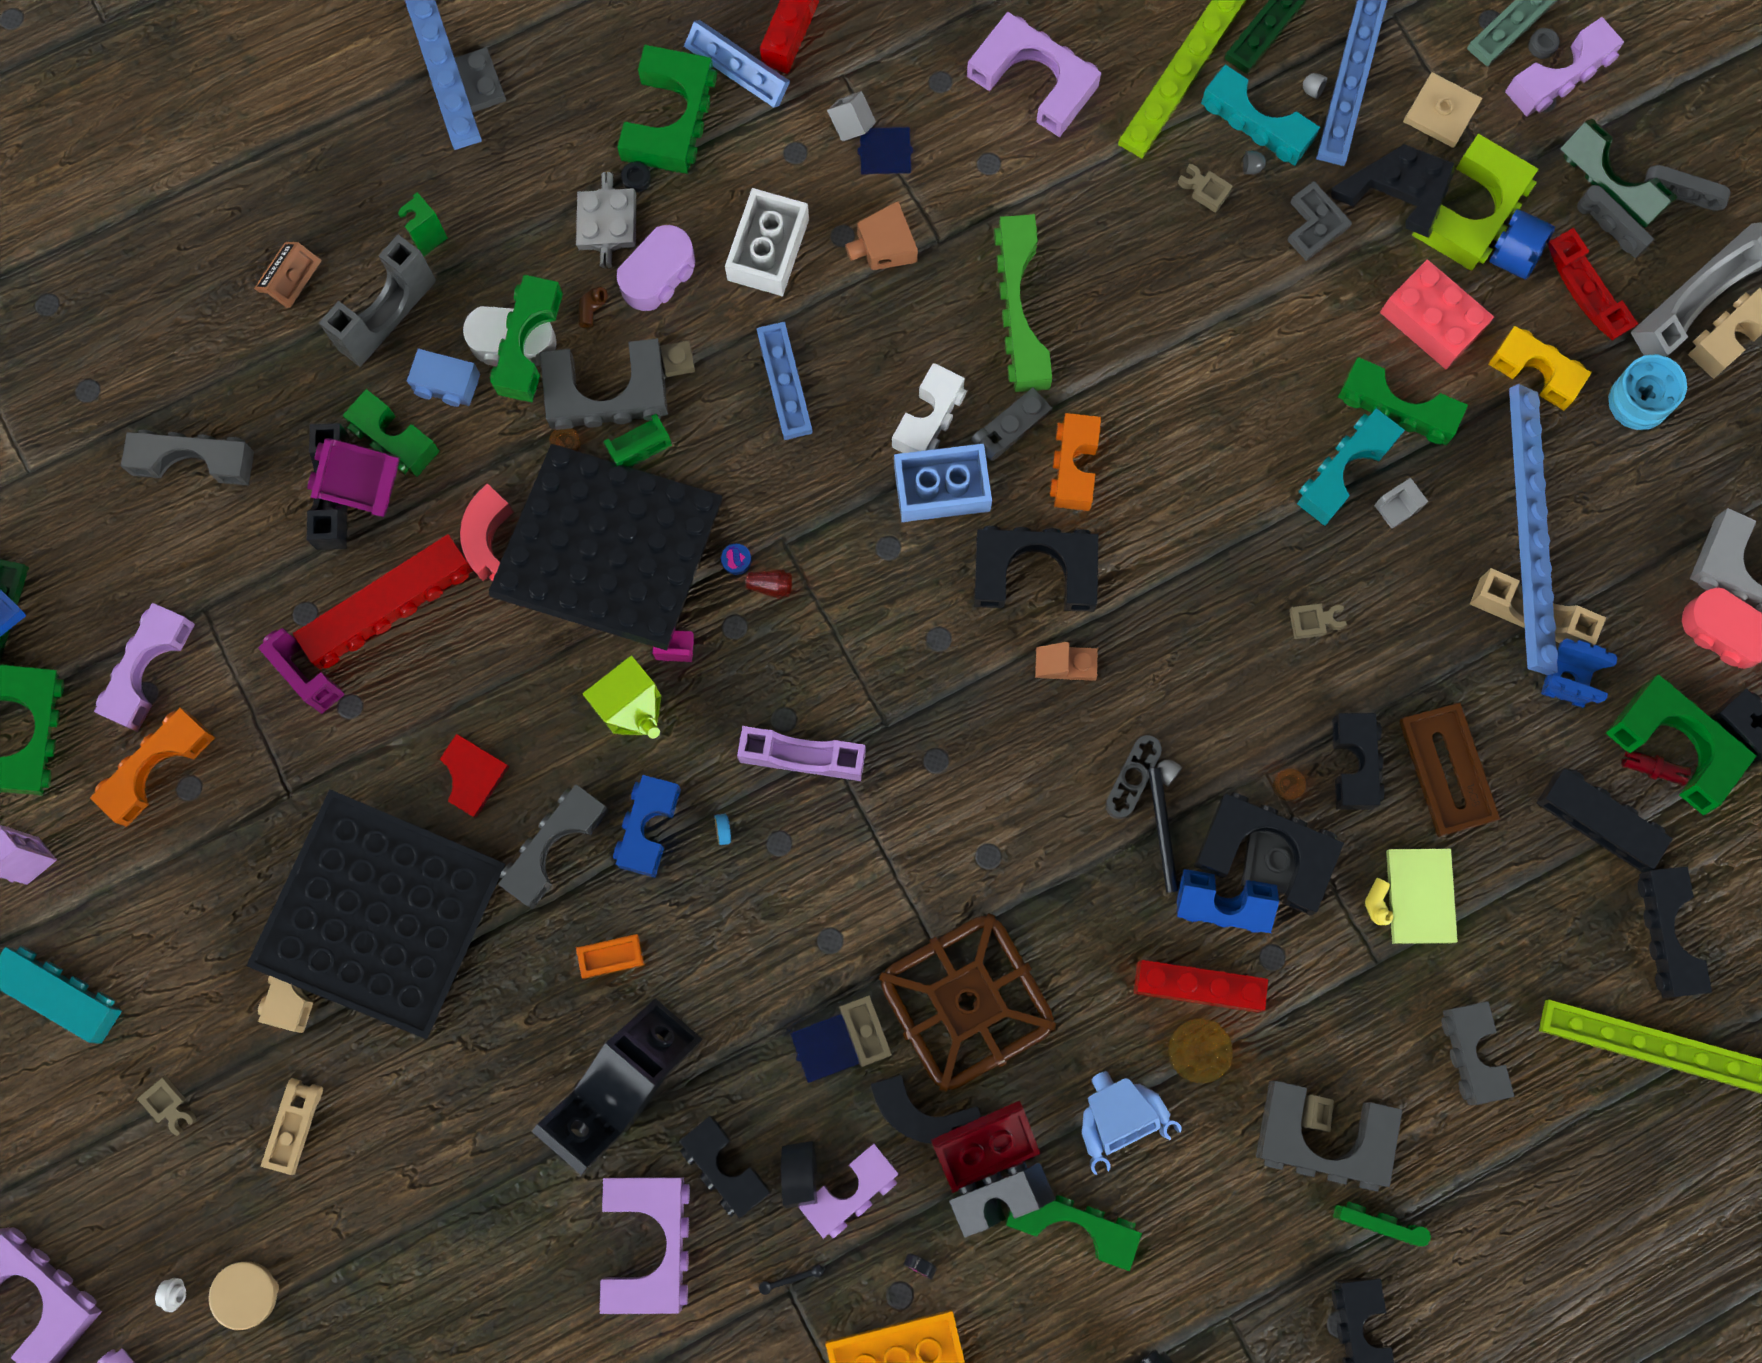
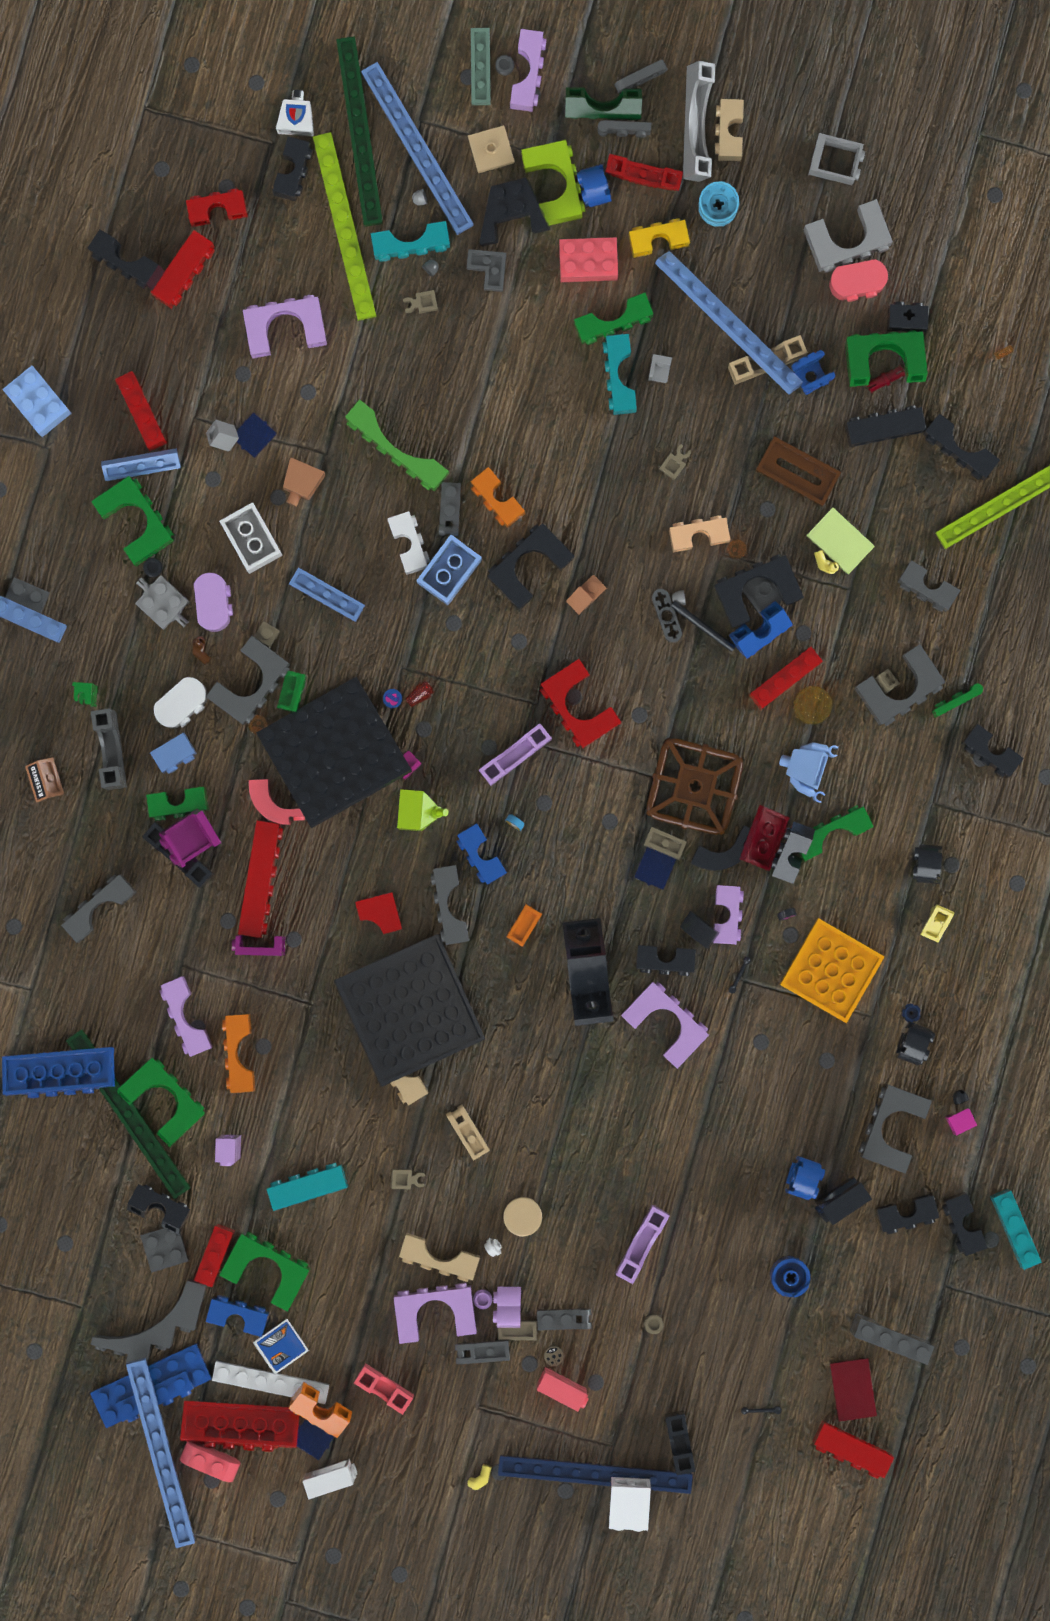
camera: 45 degrees left, 10 degrees up
(83, 1204) = (462, 1265): none -> tan arch
(93, 1344) = (482, 1299): none -> lavender plate
(535, 304) = (182, 676): green arch -> none
(926, 731) = (584, 731): none -> red arch
(1287, 735) = (715, 529): none -> light nougat arch
(1359, 735) = (746, 496): black arch -> none

